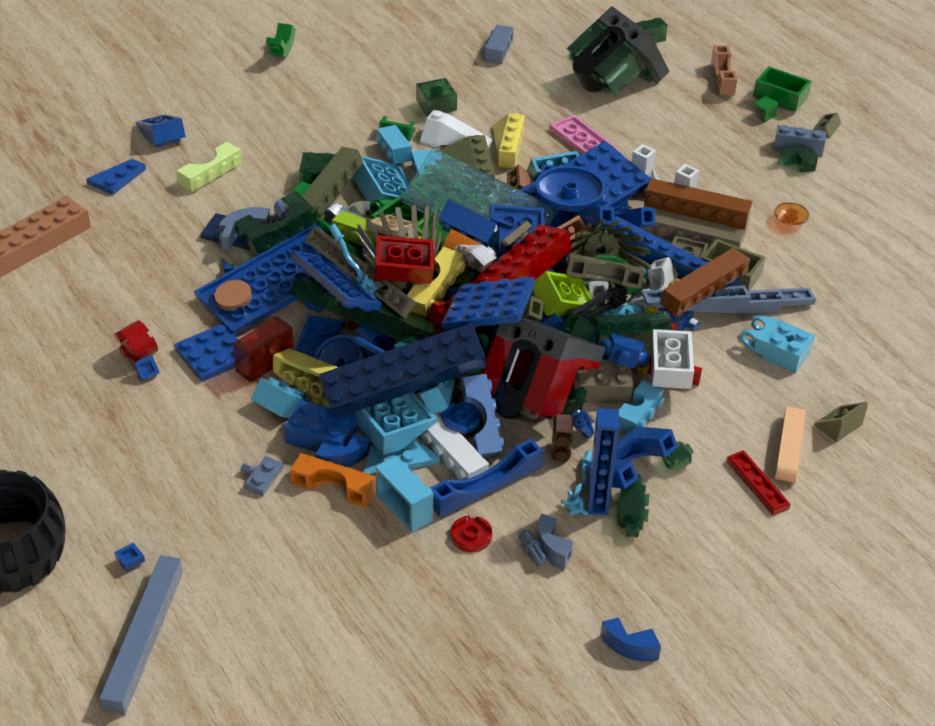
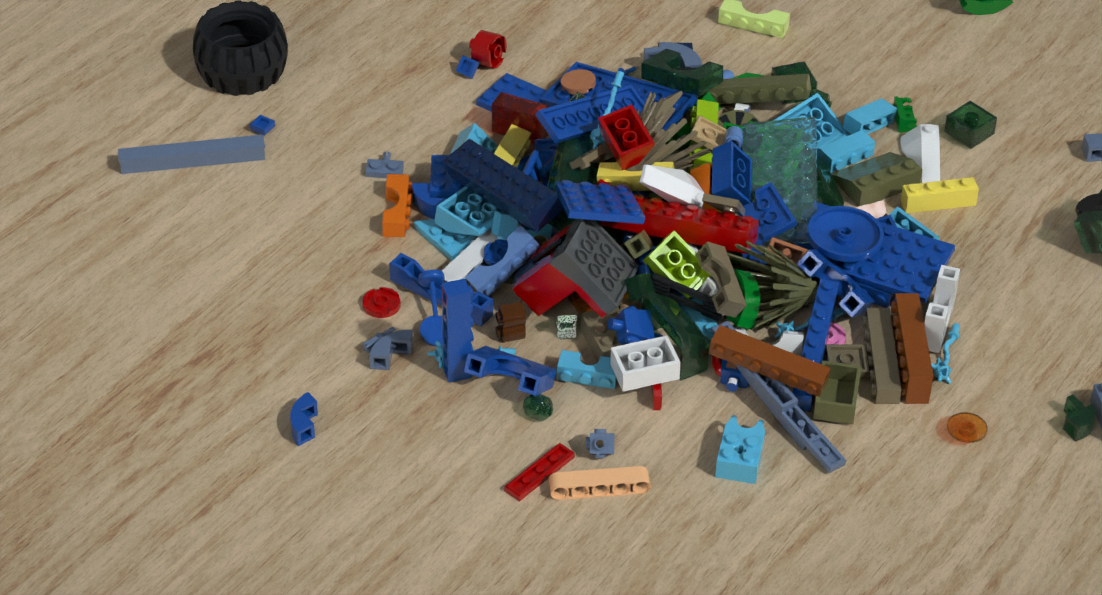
camera: 70 degrees right, 0 degrees up
(404, 493) = (395, 237): medium azure piece -> none
(405, 208) = (735, 135): none -> medium blue brick
(531, 497) = (432, 326): none -> blue piece
(577, 134) = (993, 247): bright pink tile -> none
(583, 422) = (542, 336): blue hinge -> none
(632, 508) = (459, 390): clear green hinge -> none
(744, 425) = (608, 446): none -> sand blue brick
(842, 420) = (653, 517): olive slope -> none

